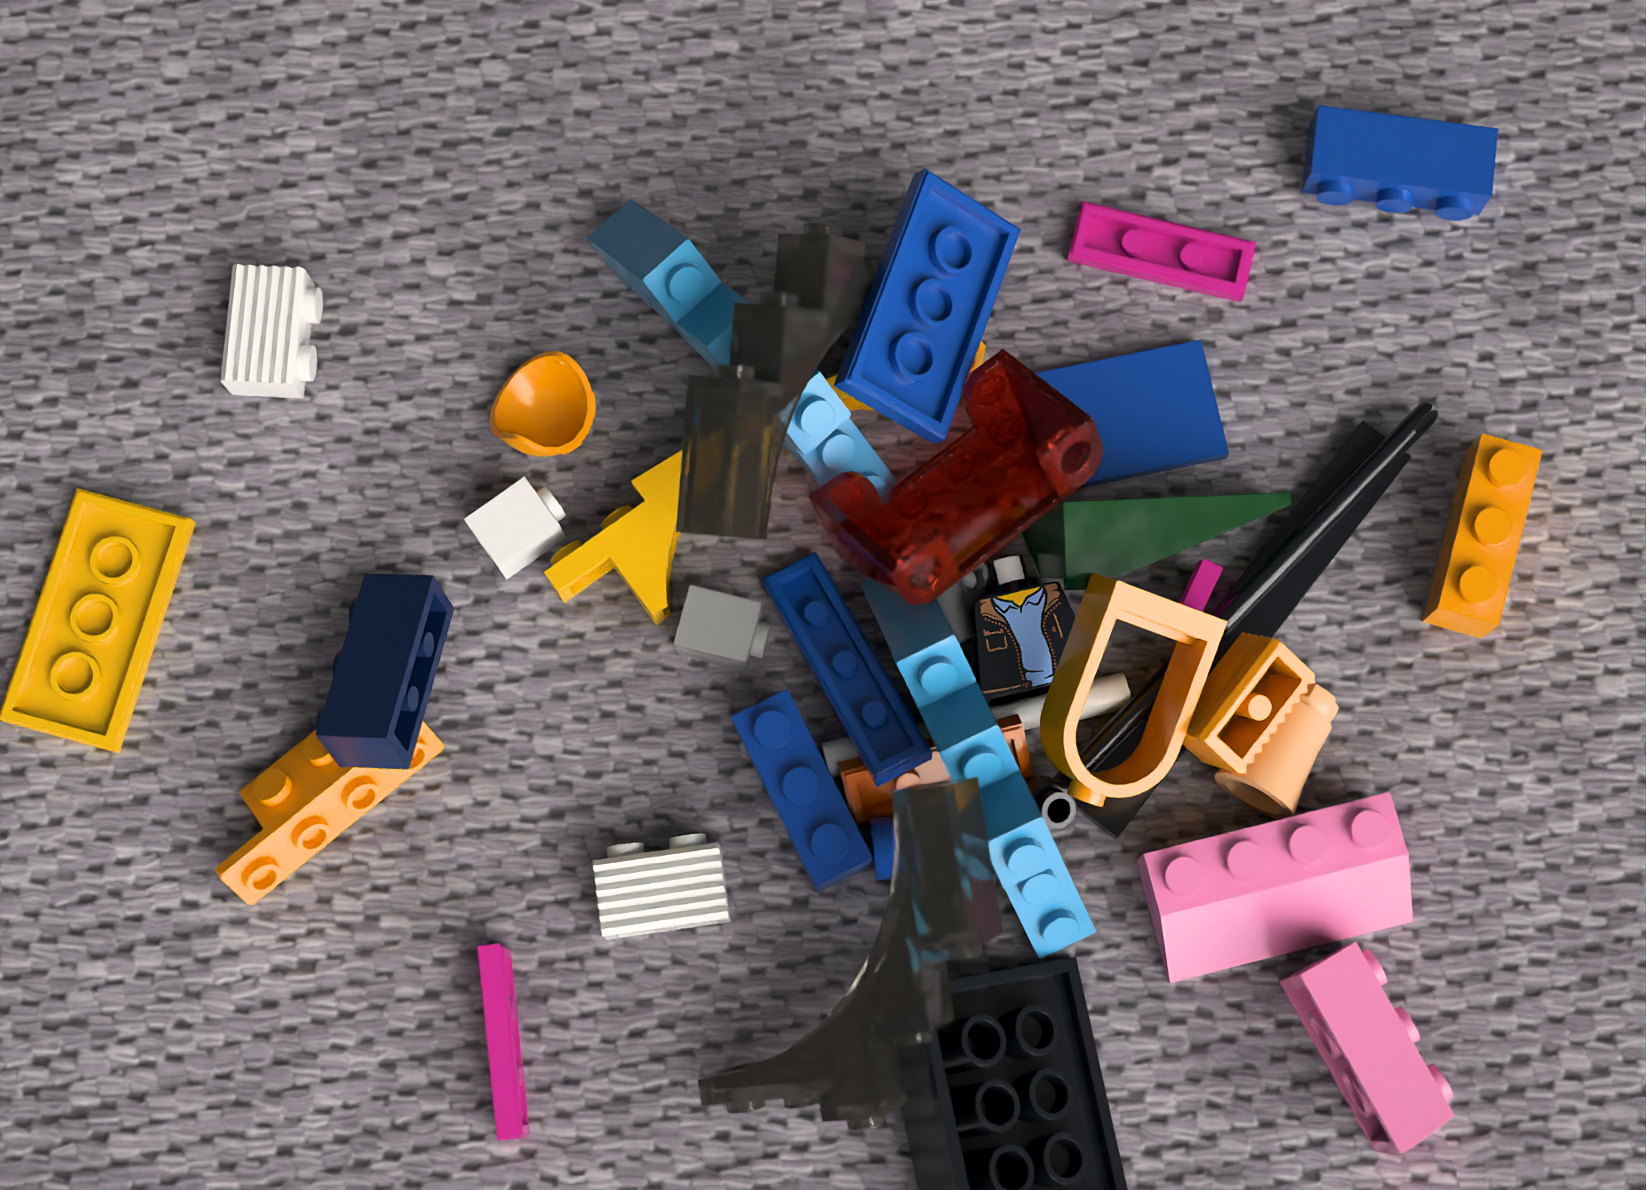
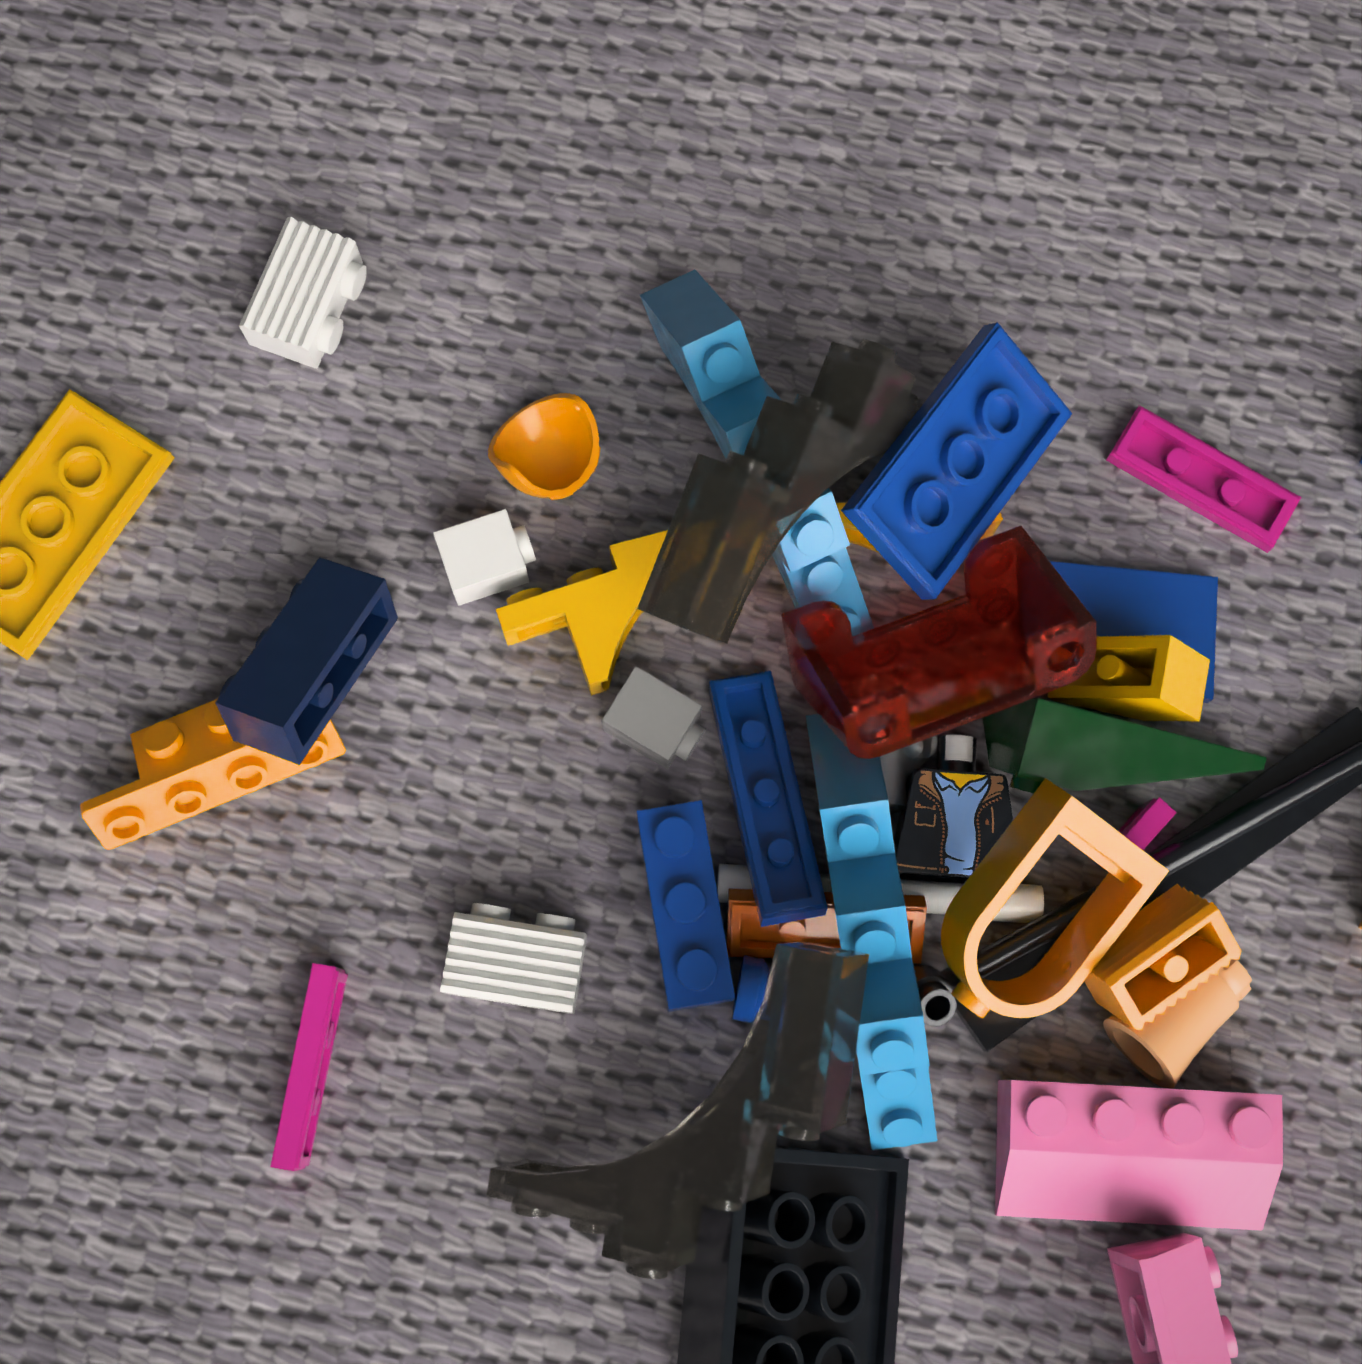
camera: 10 degrees right, 0 degrees up
(1154, 456) = (1141, 679): none -> yellow slope

